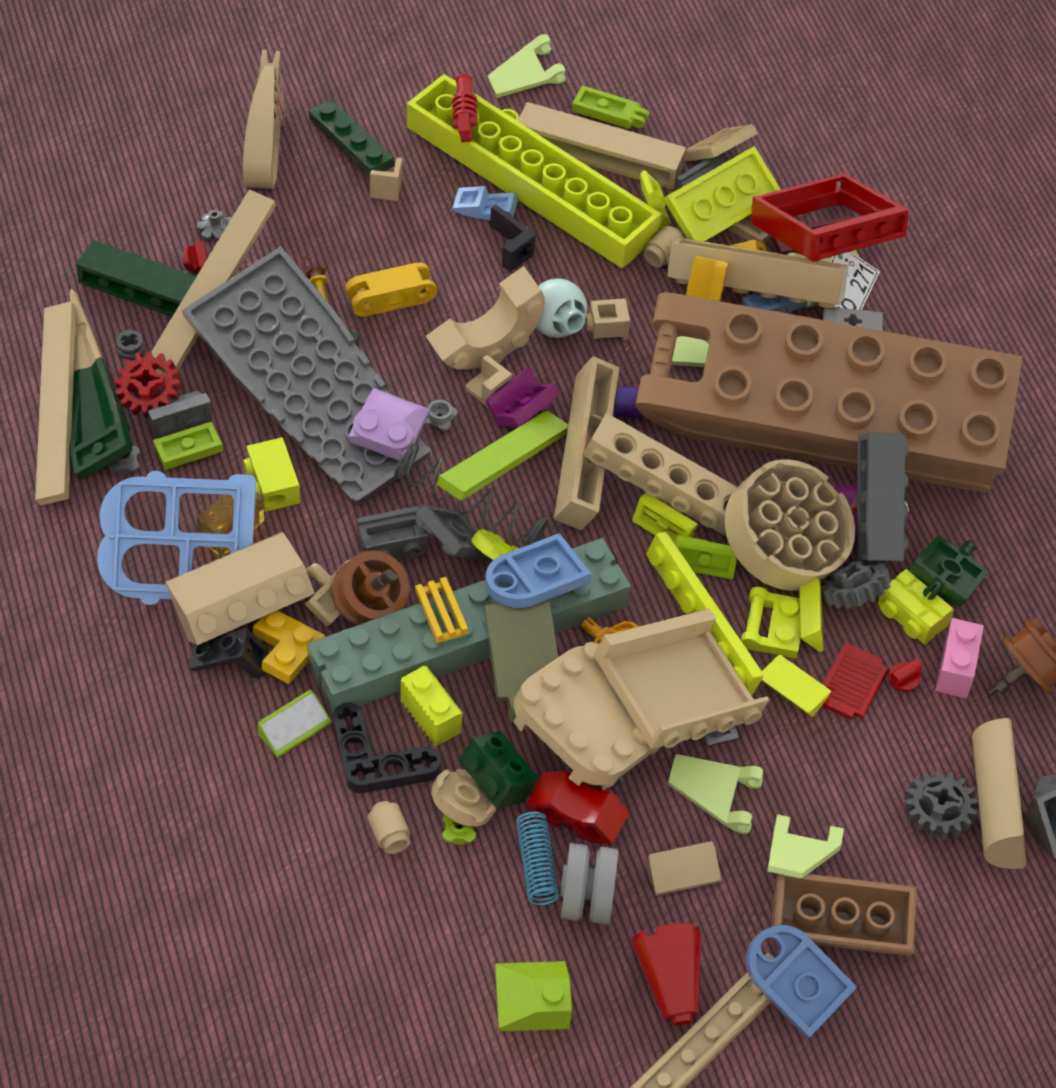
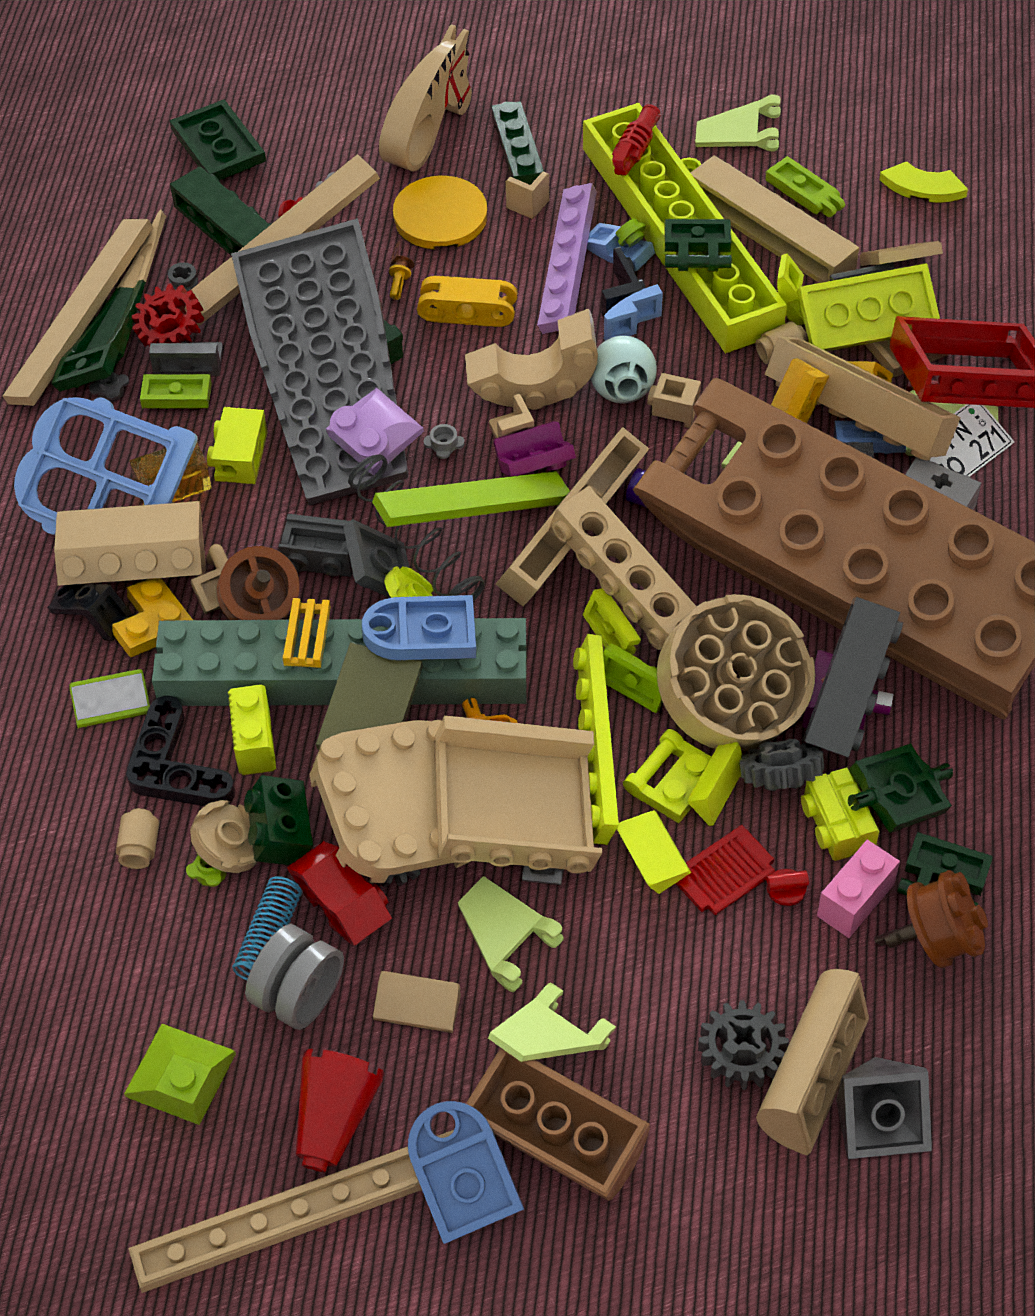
camera: 30 degrees right, 0 degrees up
(85, 210) = (218, 140): none -> dark green plate
(318, 218) = (440, 212): none -> yellow tile
(451, 226) = (567, 256): none -> lavender plate
(496, 189) = (631, 232): none -> lime plate
(535, 251) = (636, 308): none -> light blue slope
(564, 176) = (697, 236): none -> dark green plate
(690, 78) = (935, 186): none -> neon yellow tile
(1004, 617) = (933, 856): none -> dark green plate

